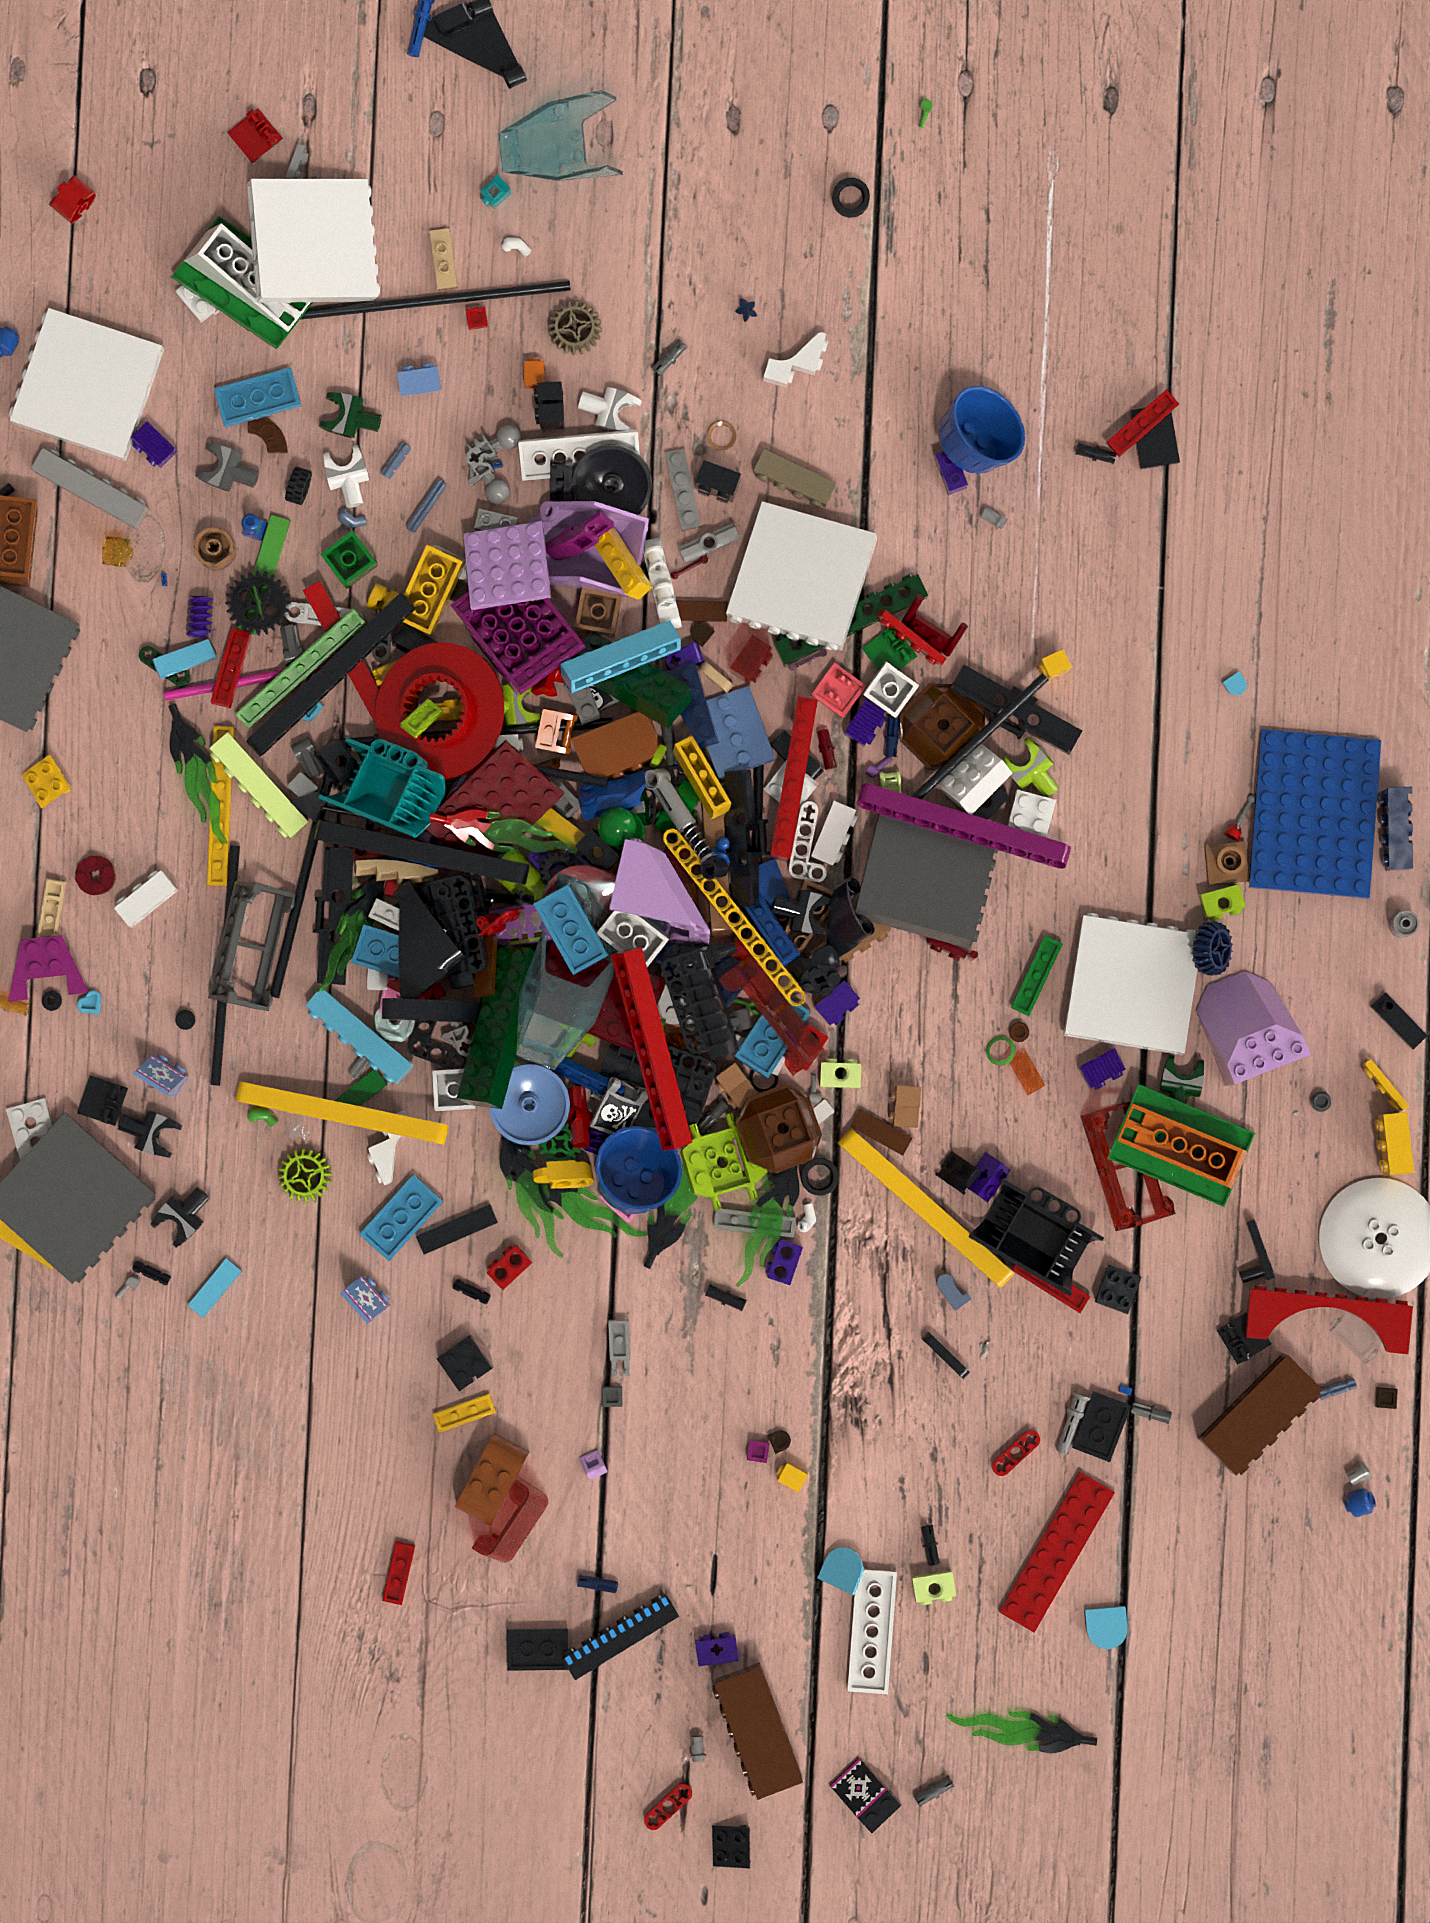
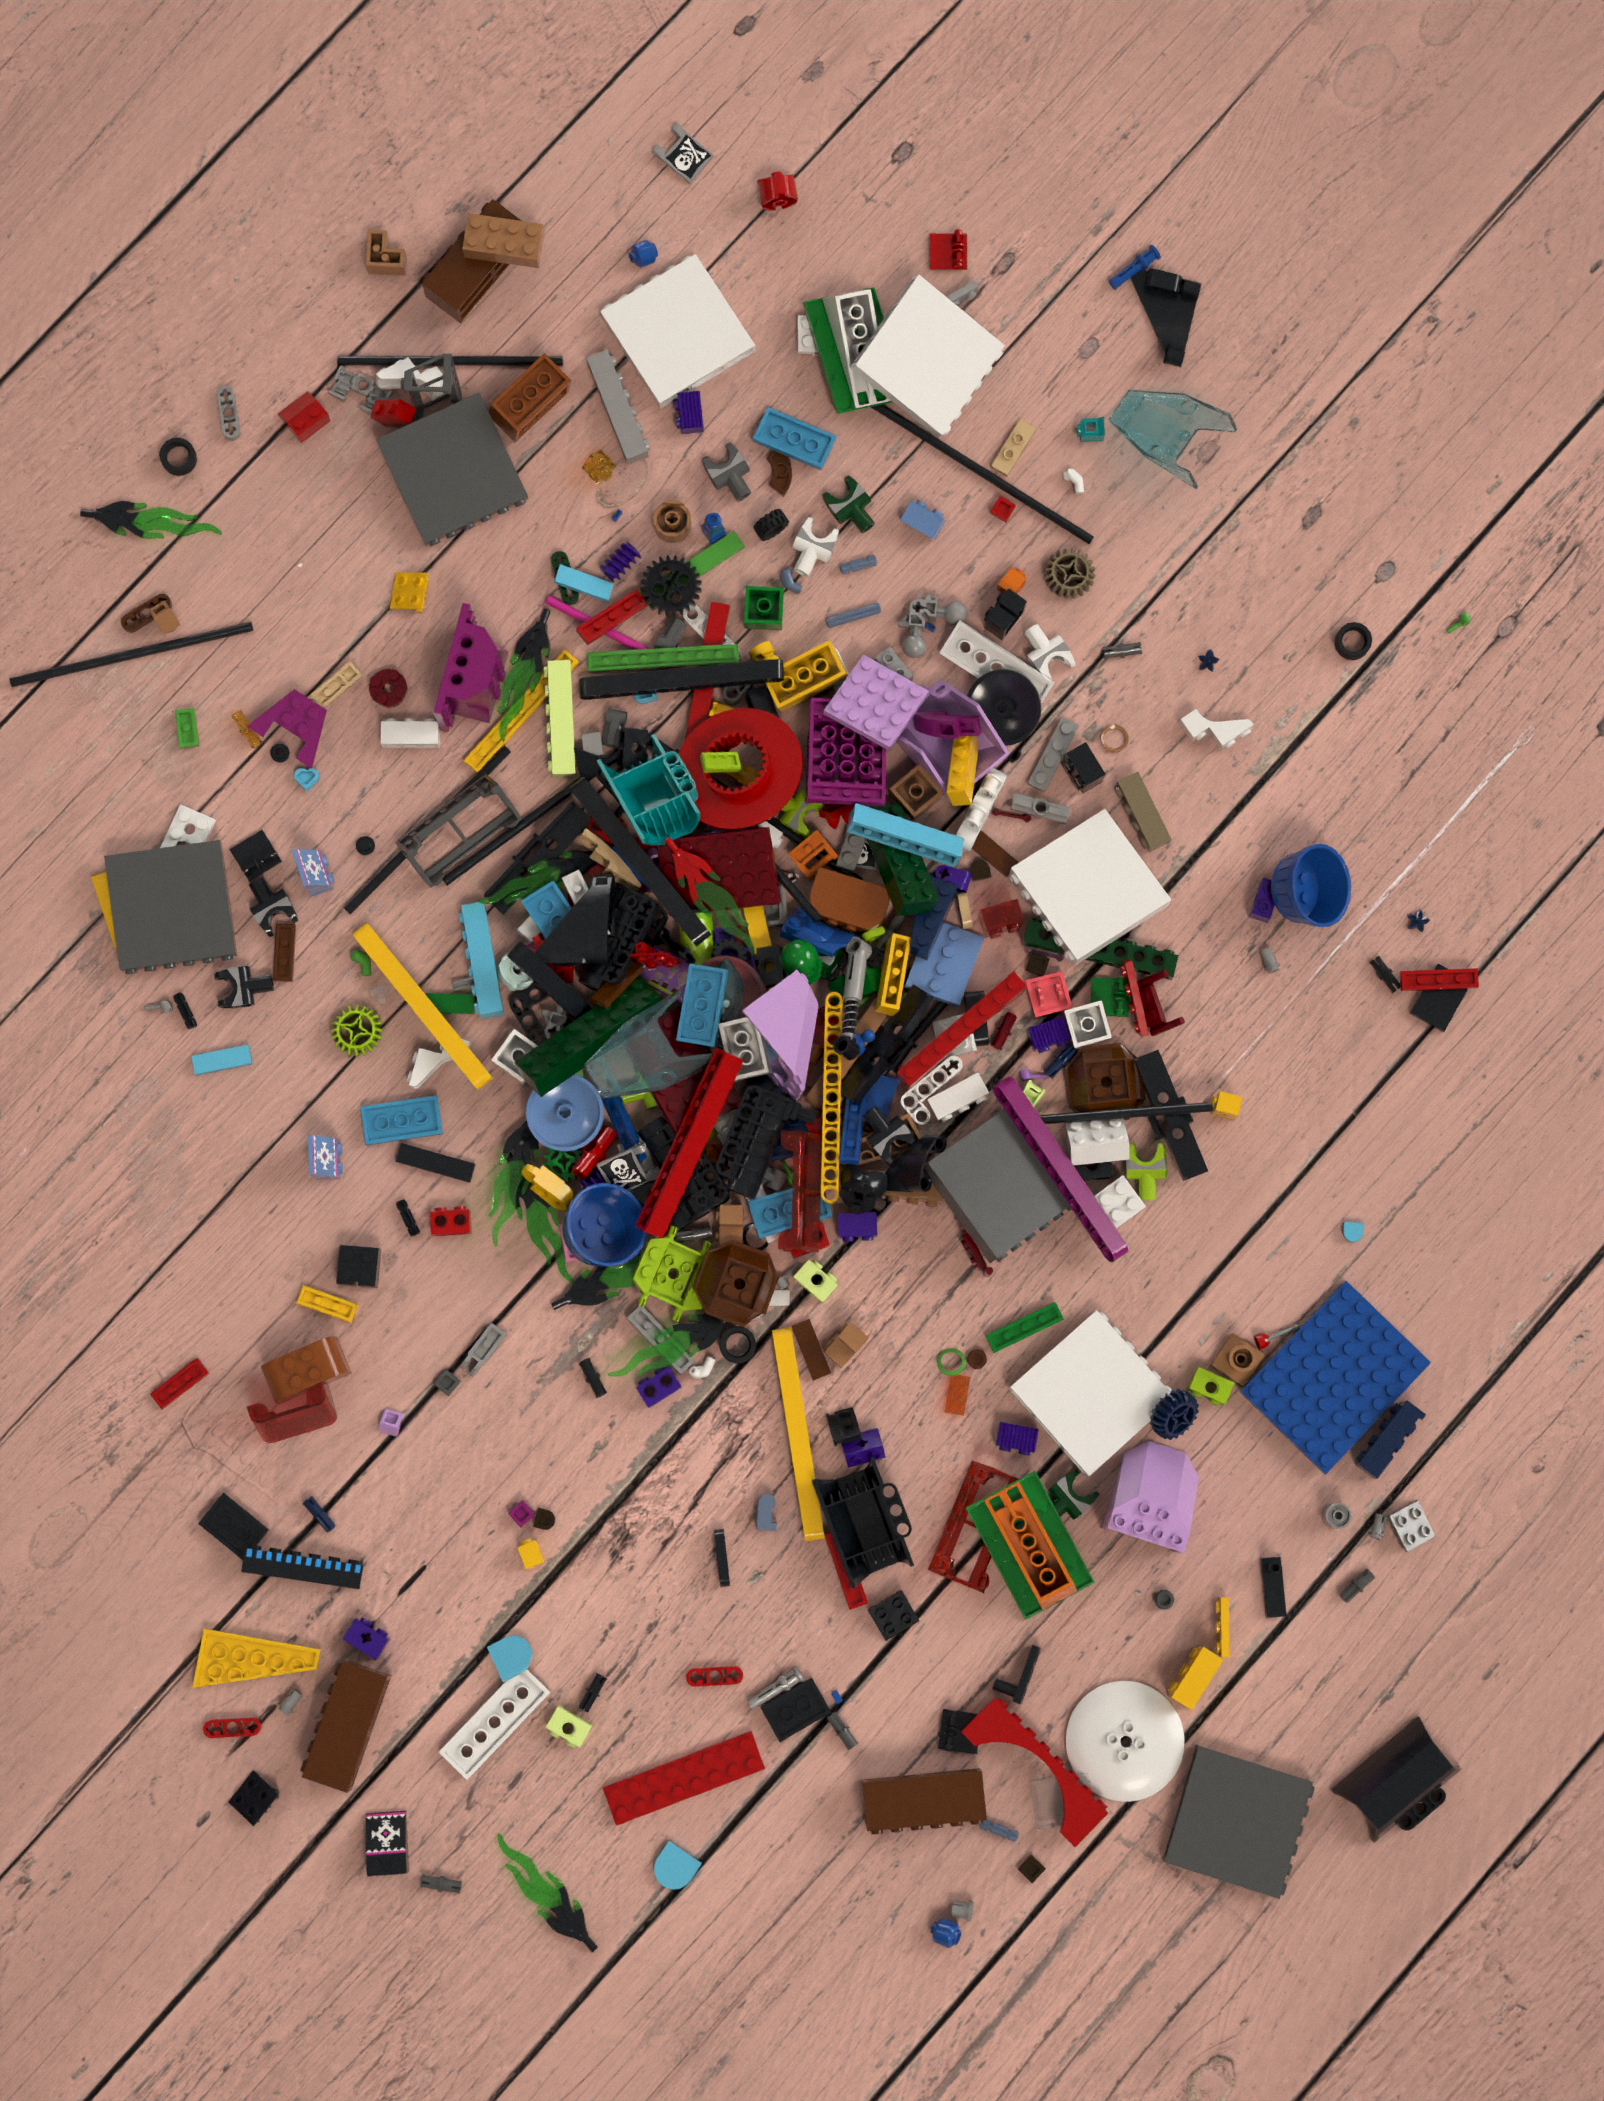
camera: 35 degrees right, 5 degrees down
(157, 809) = (471, 674): none -> magenta wedge
(192, 1160) = (284, 952): none -> reddish brown tile
(561, 481) = (968, 674): black hinge -> none
(629, 1747) = (237, 1657): none -> yellow wing
(809, 673) = (1037, 964): none -> dark brown tile
(1087, 388) = (1418, 921): none -> dark blue plant

